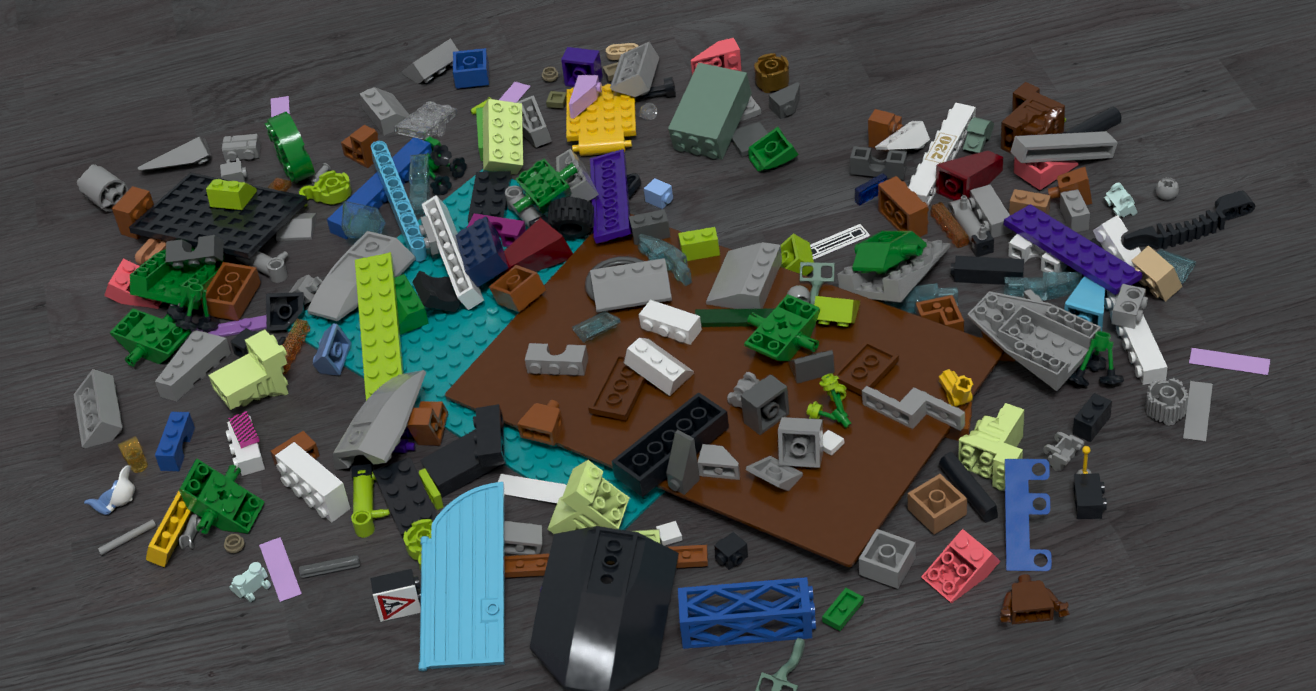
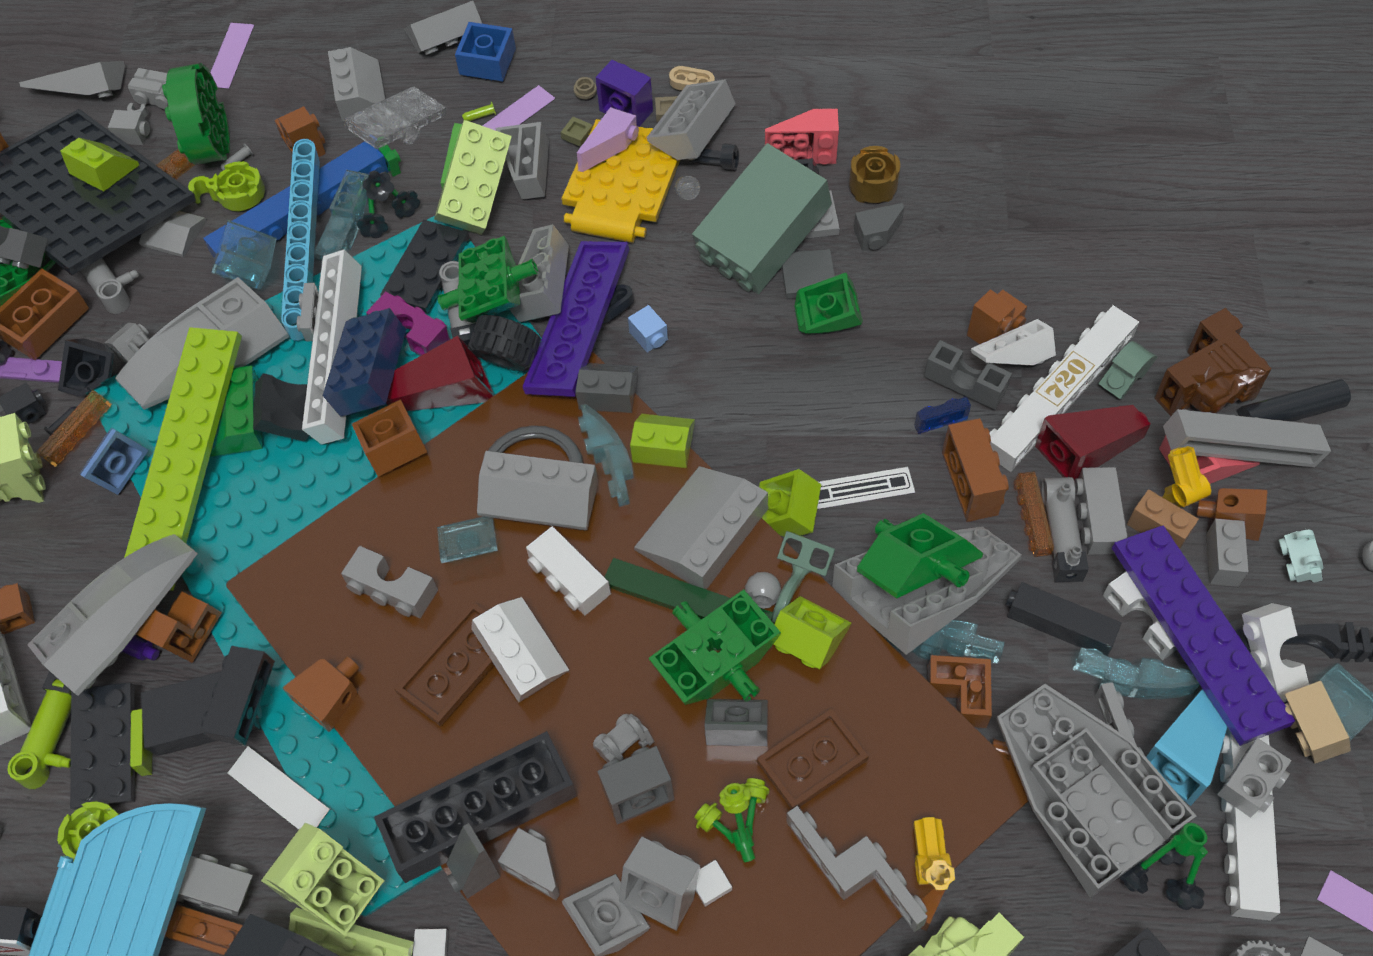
camera: 15 degrees right, 15 degrees up
(1038, 177) = (1189, 482): none -> yellow piece

